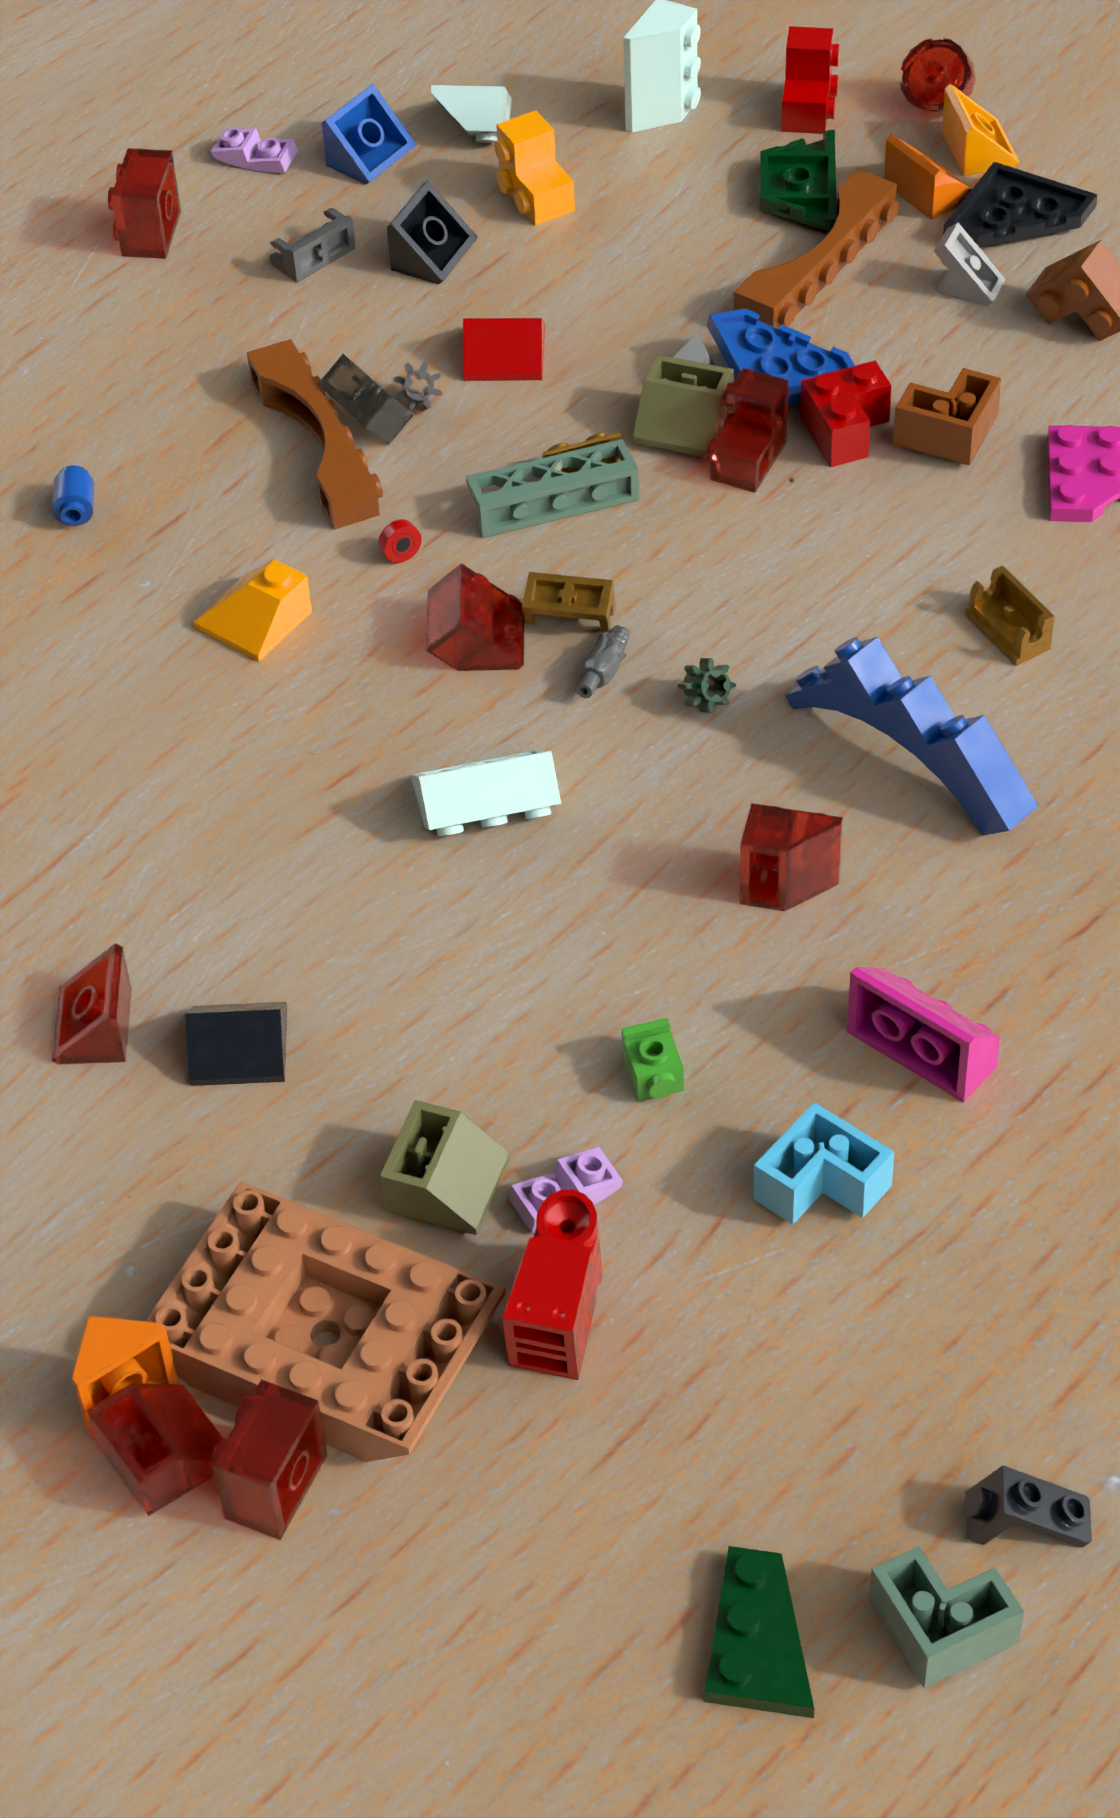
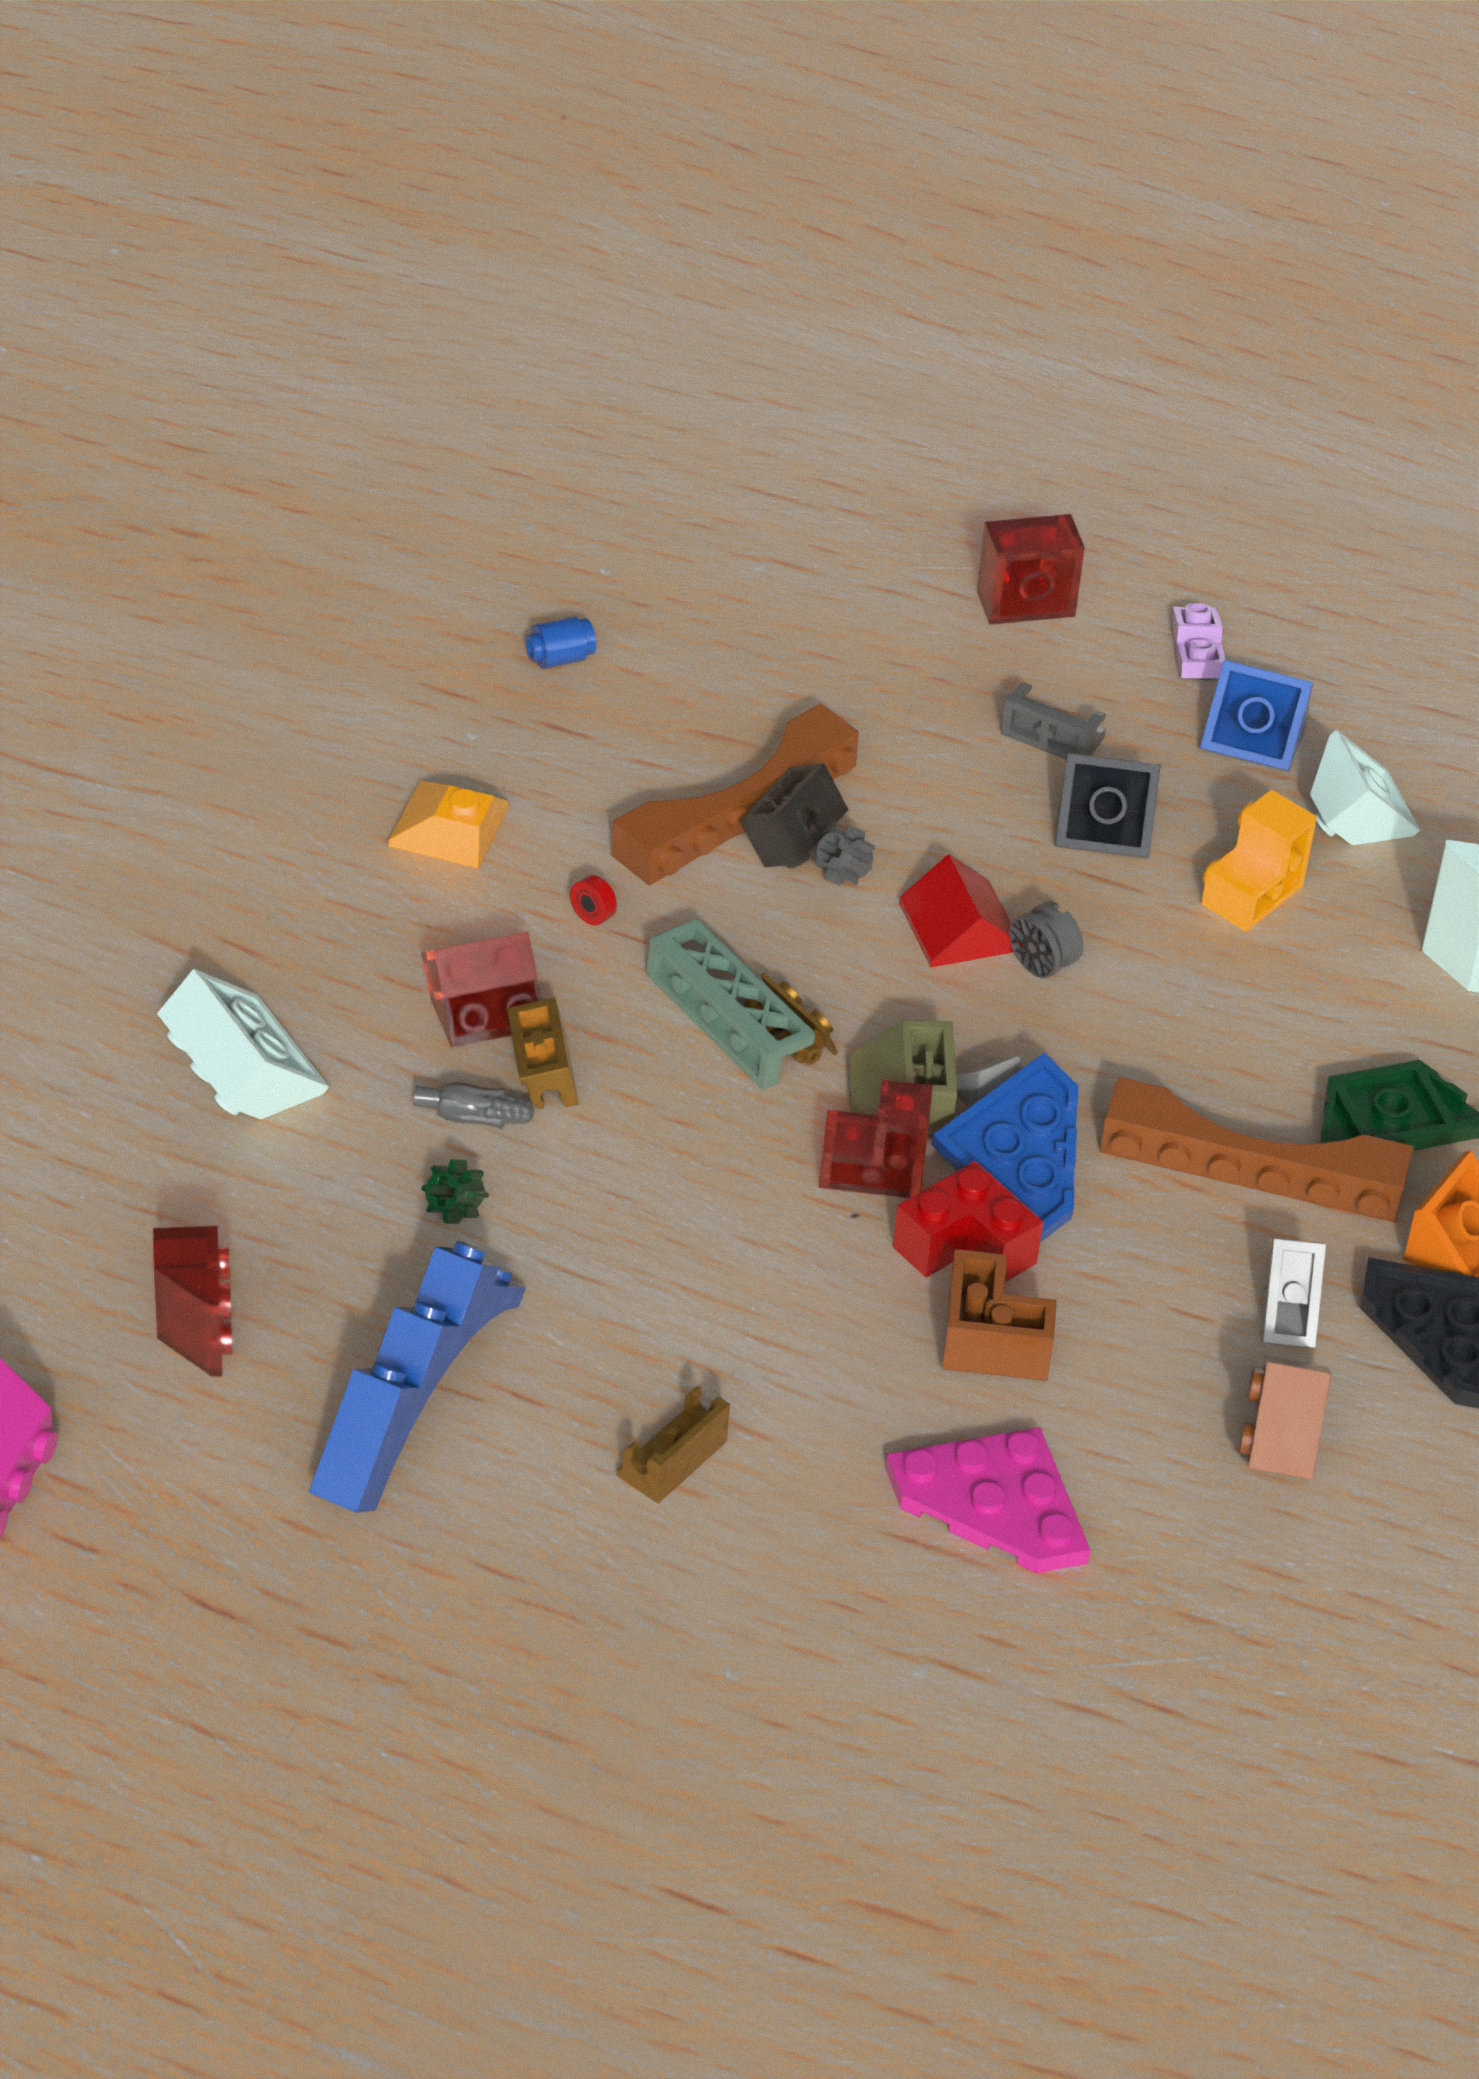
camera: 65 degrees right, 5 degrees down
(562, 300) = (1048, 938): none -> dark grey wheel

